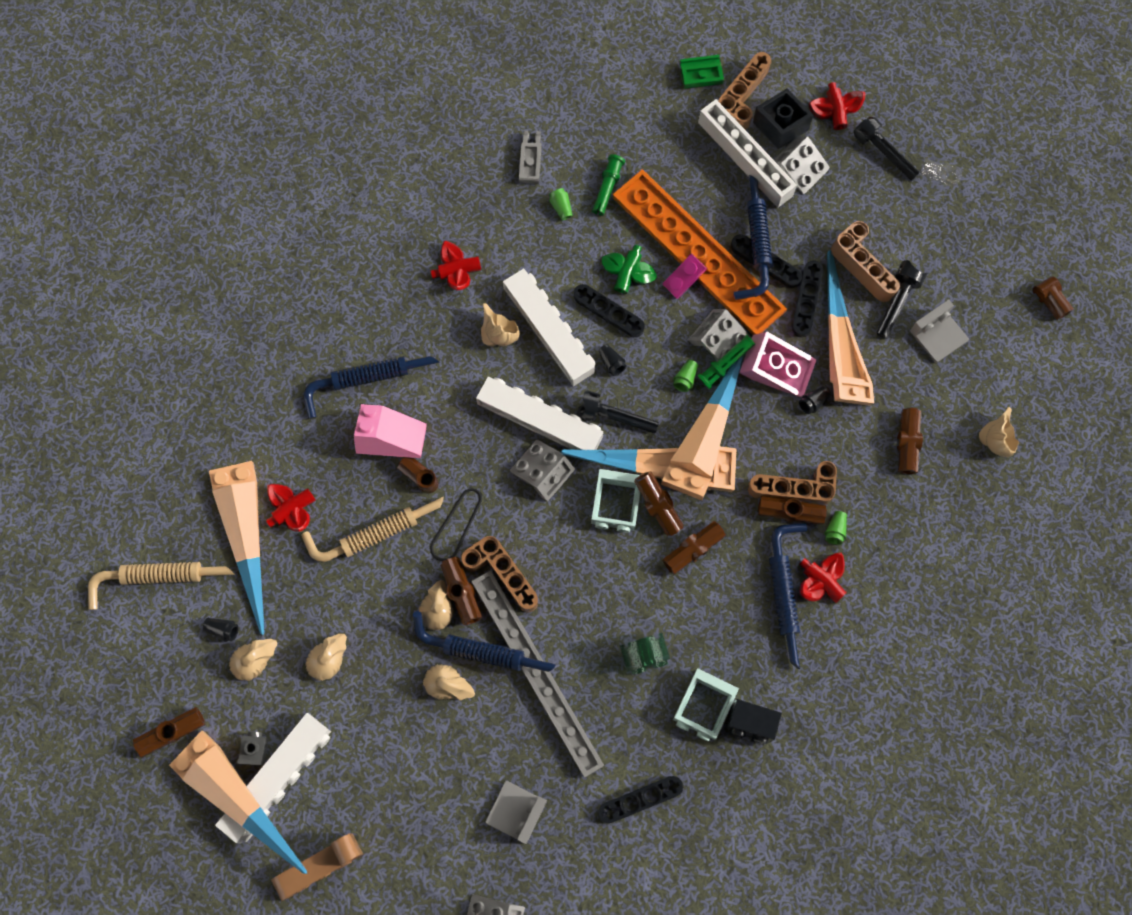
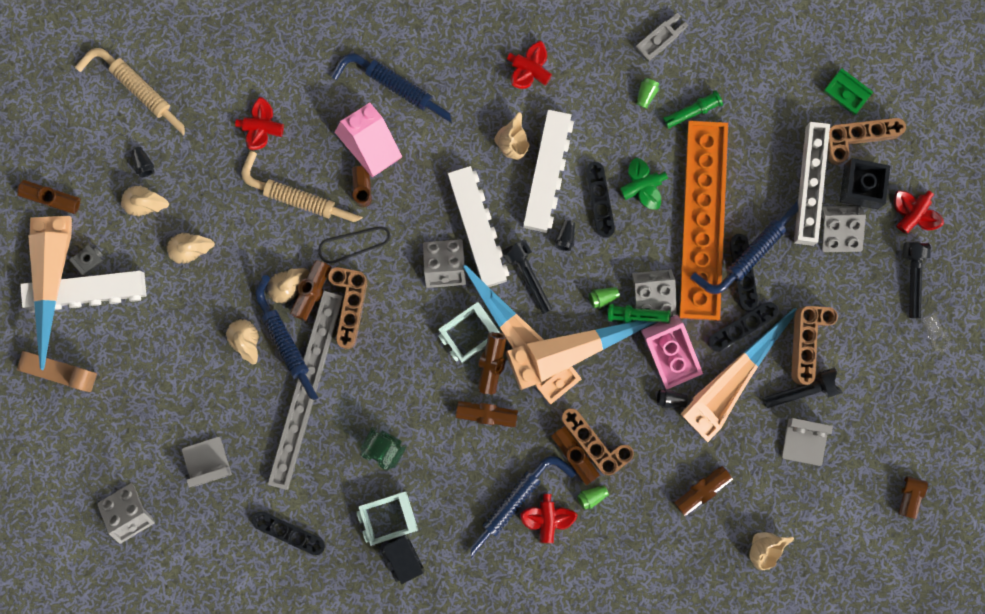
camera: 50 degrees right, 10 degrees up
(237, 503) = (230, 89): light nougat plate -> none
(684, 276) = (675, 227): dark pink plate -> none

